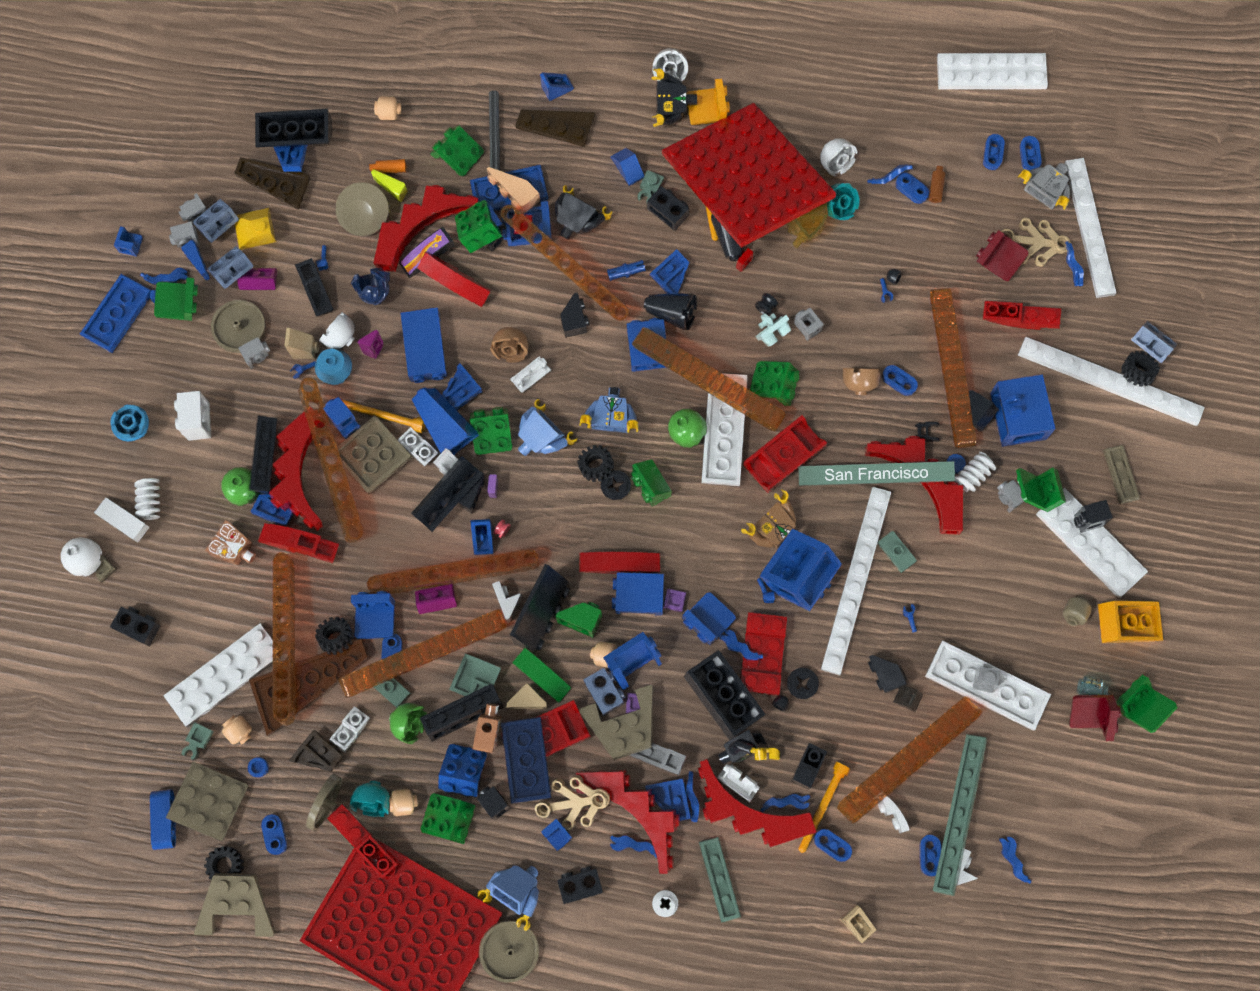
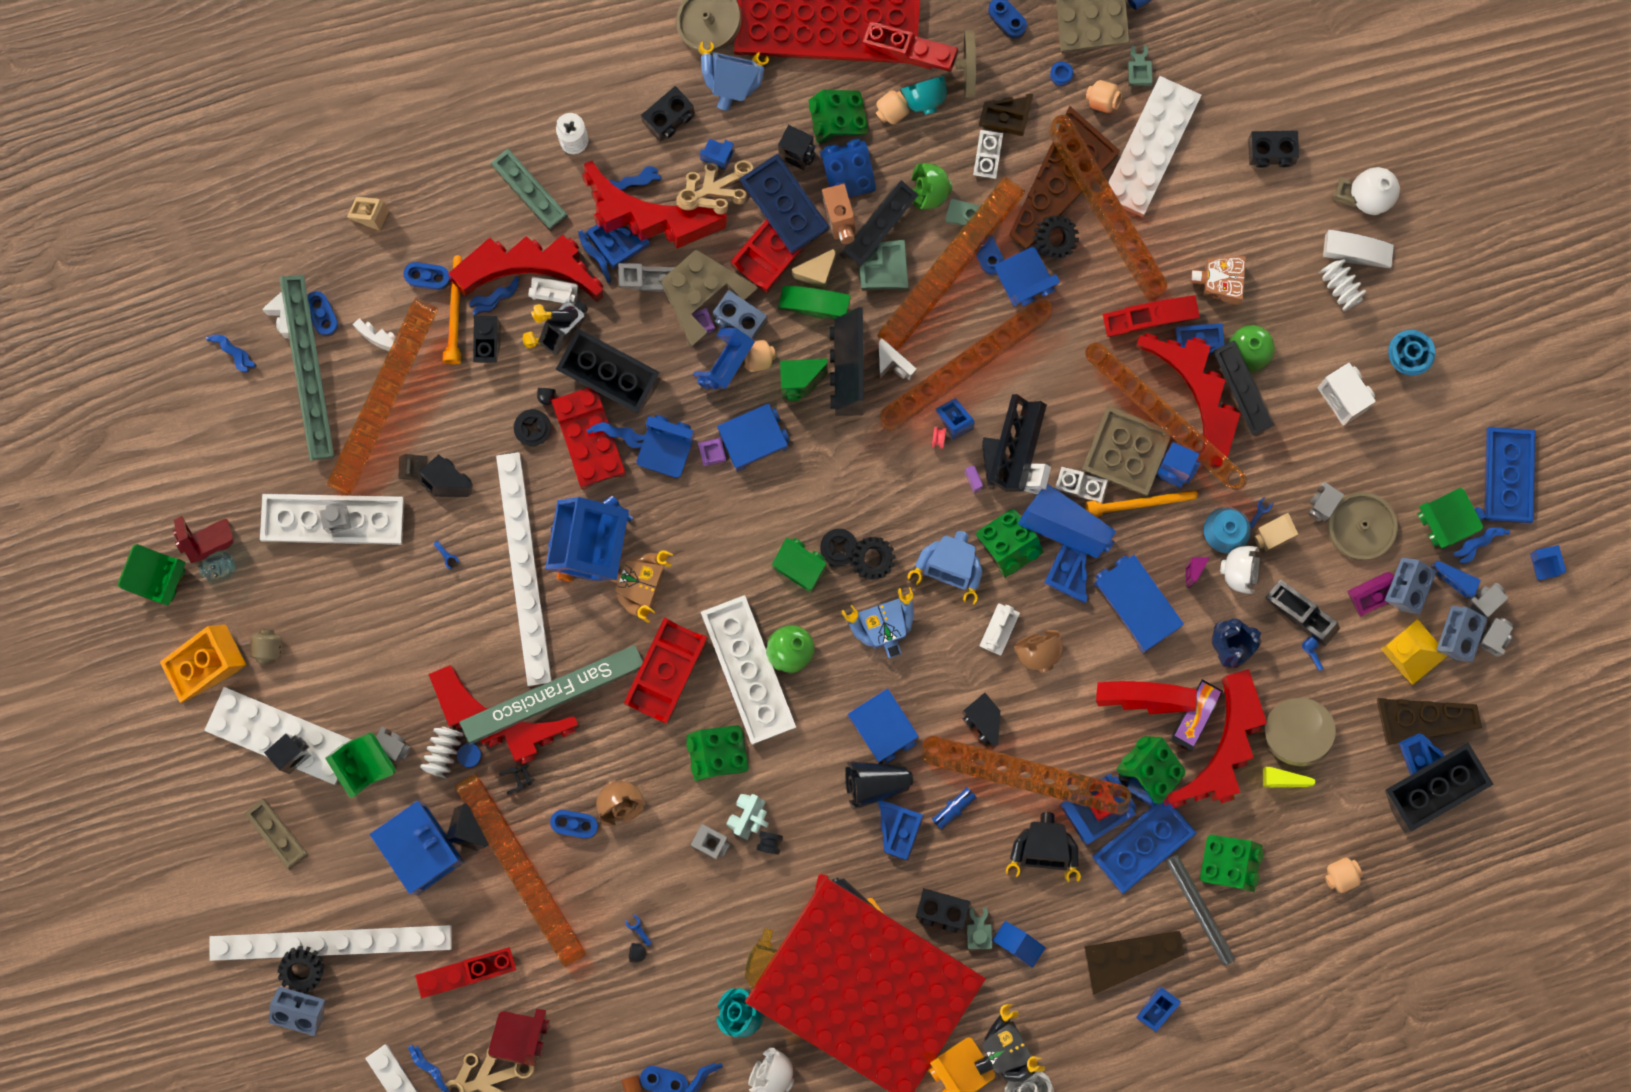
camera: 155 degrees right, 5 degrees up
(389, 166) = (1301, 803): orange cylinder -> none
(435, 599) = (971, 330): magenta slope -> none
(518, 190) = (1127, 840): light nougat slope -> none
(619, 562) = (791, 461): red slope -> none
(709, 379) = (791, 711): clear orange beam -> none
(897, 551) = (492, 621): sand green plate -> none

